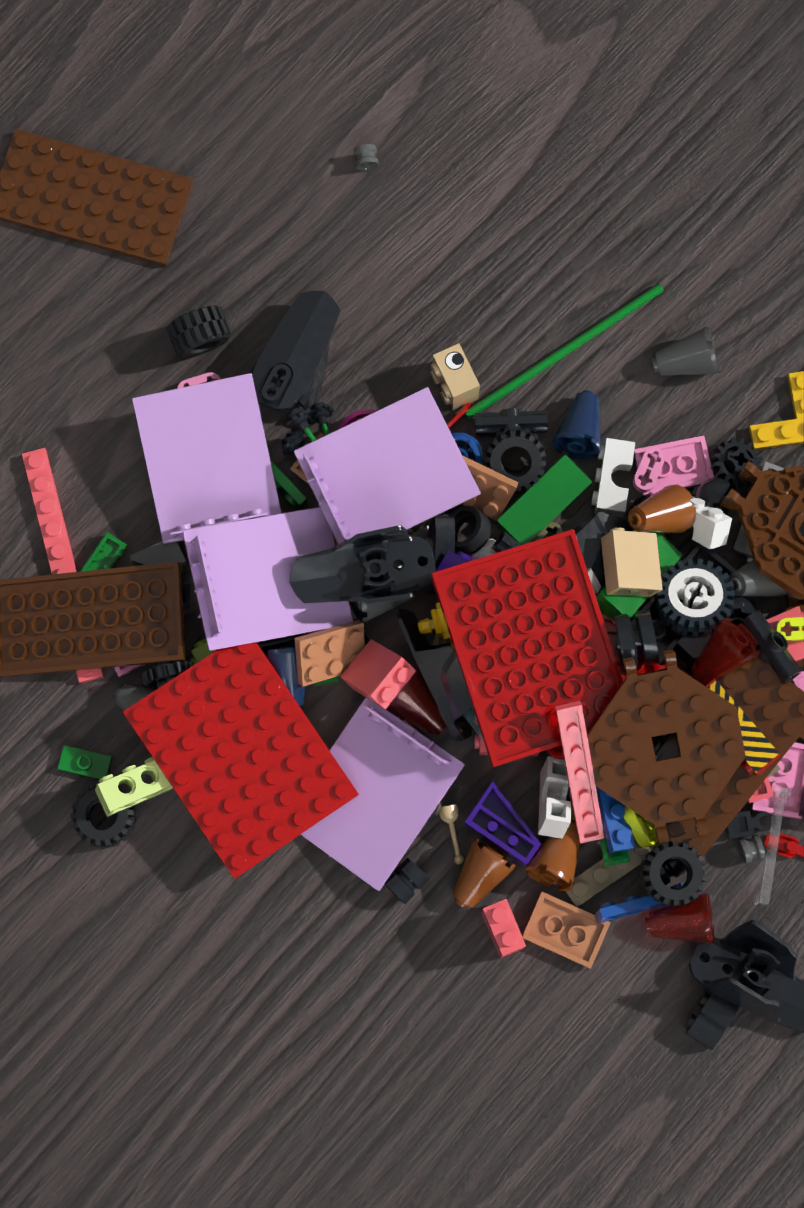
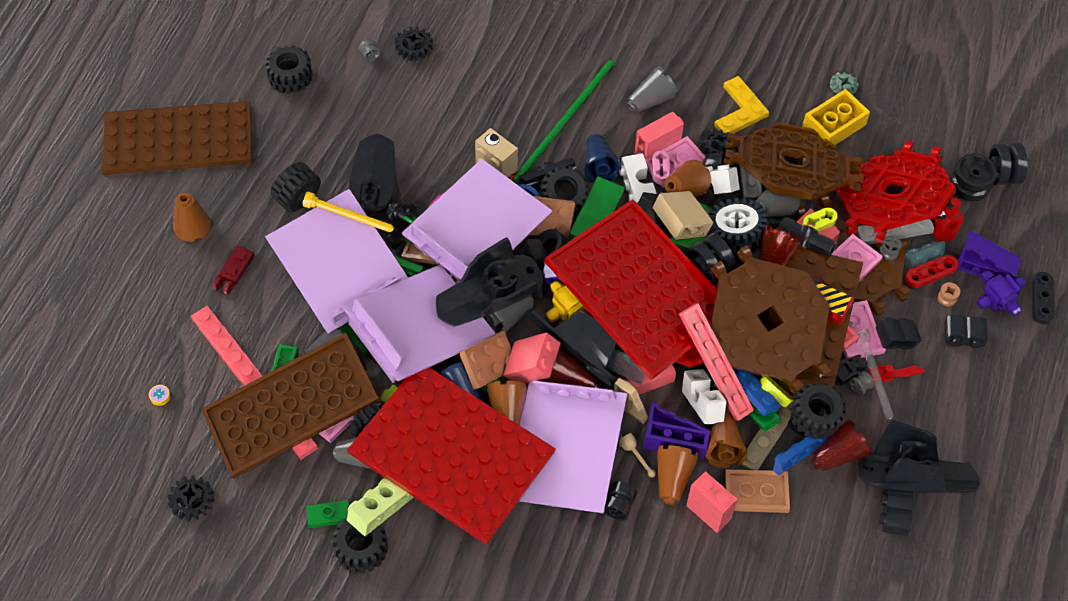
camera: 25 degrees left, 20 degrees down
(65, 326) = (190, 219): none -> dark orange cone
(92, 408) = (233, 269): none -> dark red hinge
(202, 375) = (310, 200): none -> yellow piece
(250, 134) = (293, 79): none -> black tyre
(331, 712) = (508, 398): none -> dark orange cone
(430, 176) = (414, 43): none -> black gear
(470, 757) = (633, 402): none -> tan wing
(666, 426) = (659, 135): none -> coral brick

